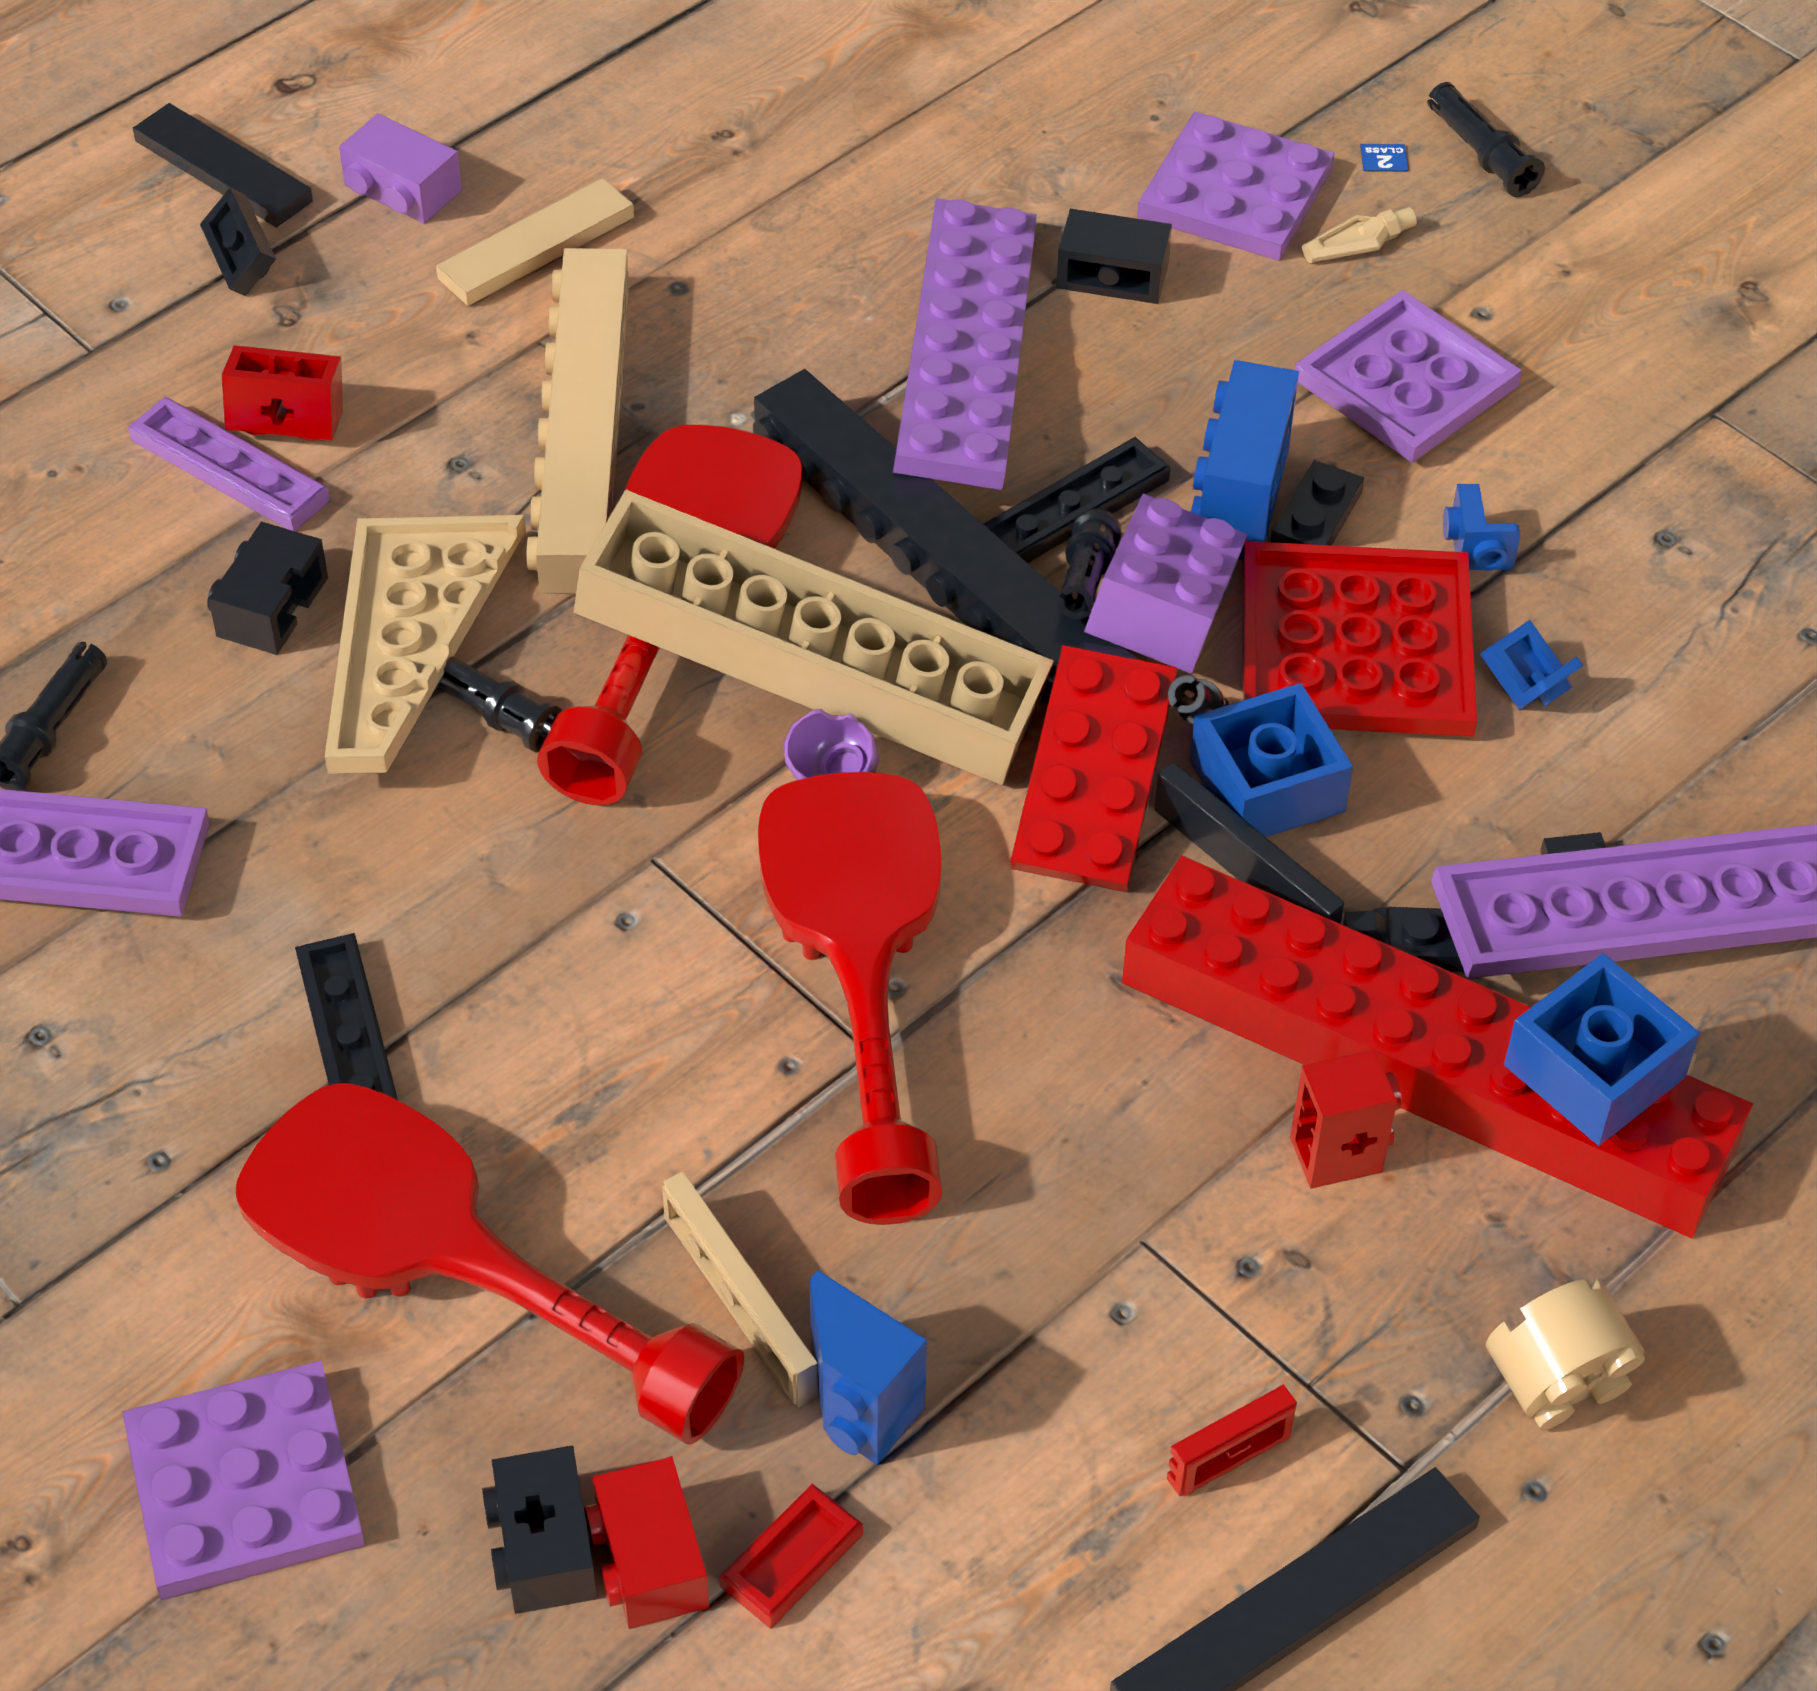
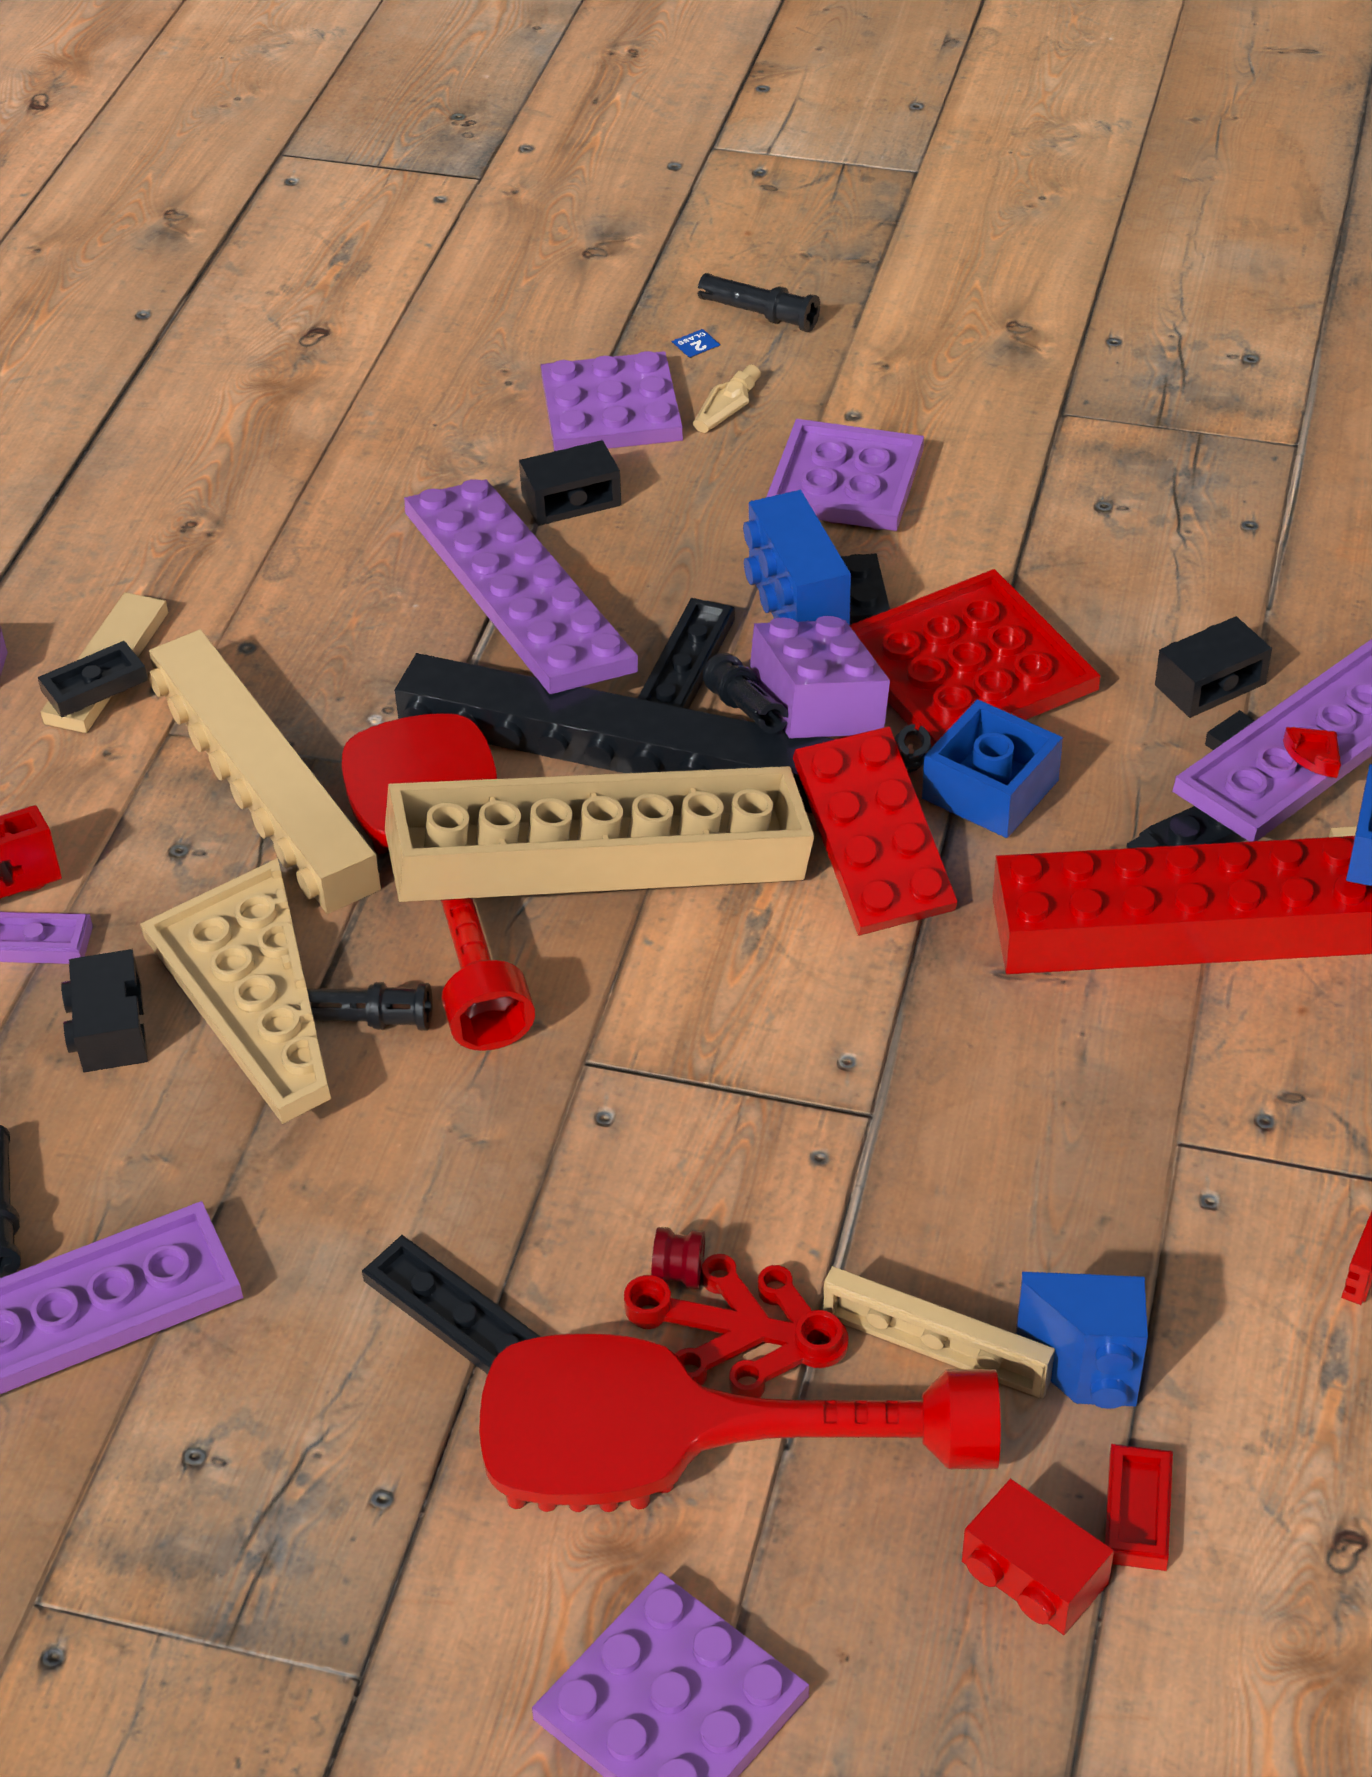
camera: 30 degrees left, 5 degrees down
(497, 254) = (92, 678): none -> black plate
(548, 1565) = (948, 1596): black brick -> none
(568, 1087) = (678, 1256): none -> dark red wheel
(576, 1184) = (743, 1325): none -> red plant
(829, 745) = (671, 916): medium lavender hair -> none
(856, 877) = (777, 992): red piece -> none
(1238, 844) = (999, 832): black tile -> none
(1344, 1118) = (1260, 977): red brick -> none
(1487, 544) = (980, 552): blue bracket -> none
(1529, 667) = (1101, 627): blue bracket -> none
(1610, 771) = (1213, 666): none -> black brick
(1613, 913) = (1314, 750): none -> red tile

